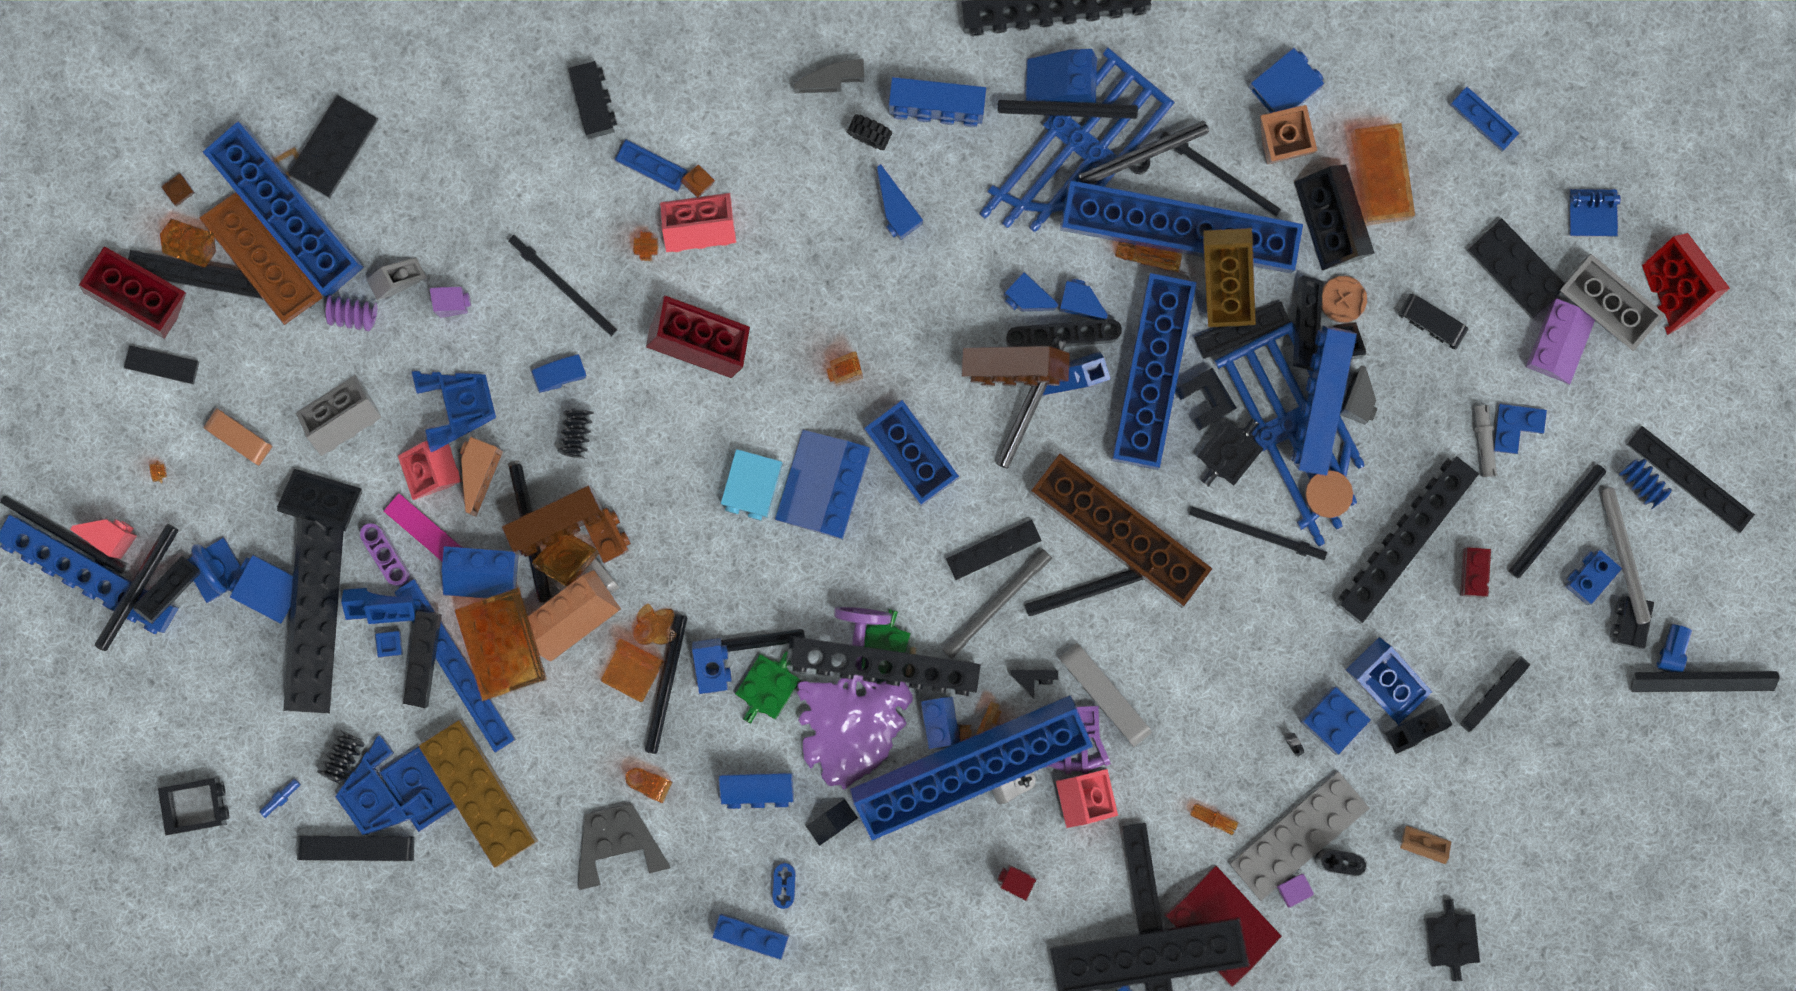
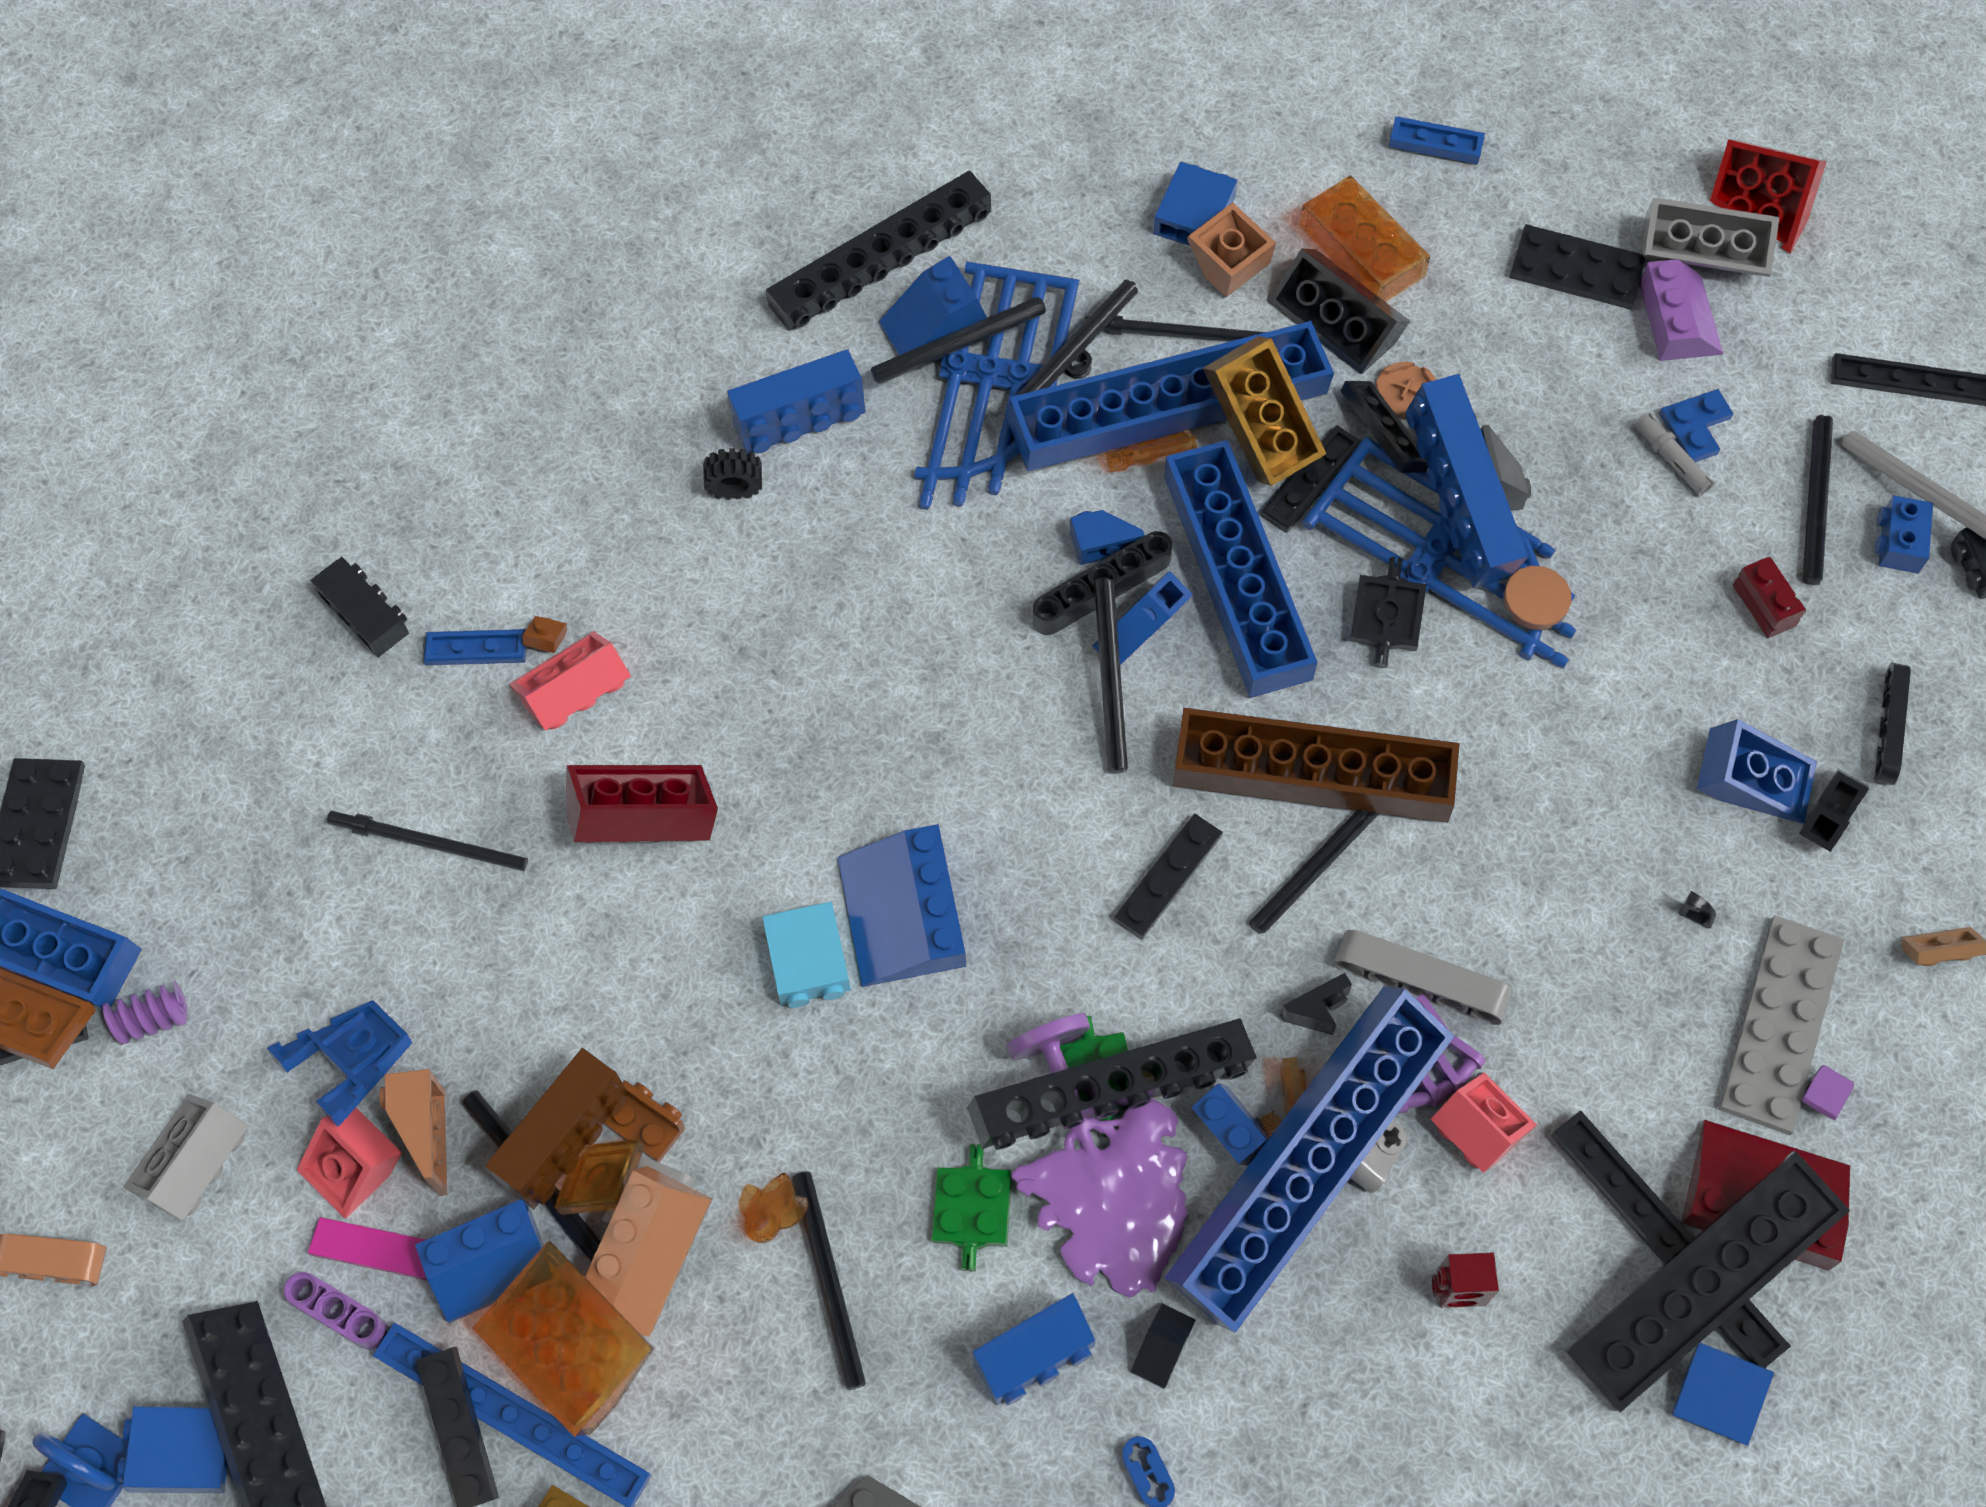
camera: 30 degrees left, 20 degrees down
(319, 499) = (205, 1281): black plate -> none
(377, 608) = (356, 1387): blue slope -> none
(389, 644) = (399, 1436): blue plate -> none
(396, 278) = (190, 939): light grey slope -> none
(449, 301) = (279, 928): medium lavender slope -> none
(558, 373) = (469, 950): blue slope -> none
(575, 433) = (530, 1010): black piece -> none
(632, 670) = (771, 1281): clear orange bracket -> none
(646, 246) = (515, 737): clear orange gear -> none
(652, 785) = (885, 1429): clear orange piece -> none
(711, 679) = (858, 1205): blue brick -> none
(761, 640) = (918, 1157): black axle -> none
(830, 77) = (653, 443): dark grey slope -> none
(845, 369) = (854, 750): clear orange slope -> none
(899, 212) = (818, 545): blue slope -> none
(911, 453) = (995, 808): blue brick -> none
(1016, 365) = (1066, 629): reddish brown brick -> none
(1028, 296) = (1035, 561): blue slope -> none
(1033, 567) = (1231, 872): dark grey piece -> none
(1214, 819) = (1662, 1059): clear orange axle -> none
(1215, 394) = (1326, 558): black connector -> none
(1302, 548) = (1545, 678): black bar -> none
(1335, 720) = (1728, 853): blue brick -> none
(1336, 865) = (1853, 1019): black connector -> none
(1438, 323) = (1525, 359): black beam -> none
(1463, 477) = (1678, 503): black brick -> none
(1594, 212) = (1620, 172): blue hinge -> none
(1646, 482) = (1886, 404): blue piece -> none

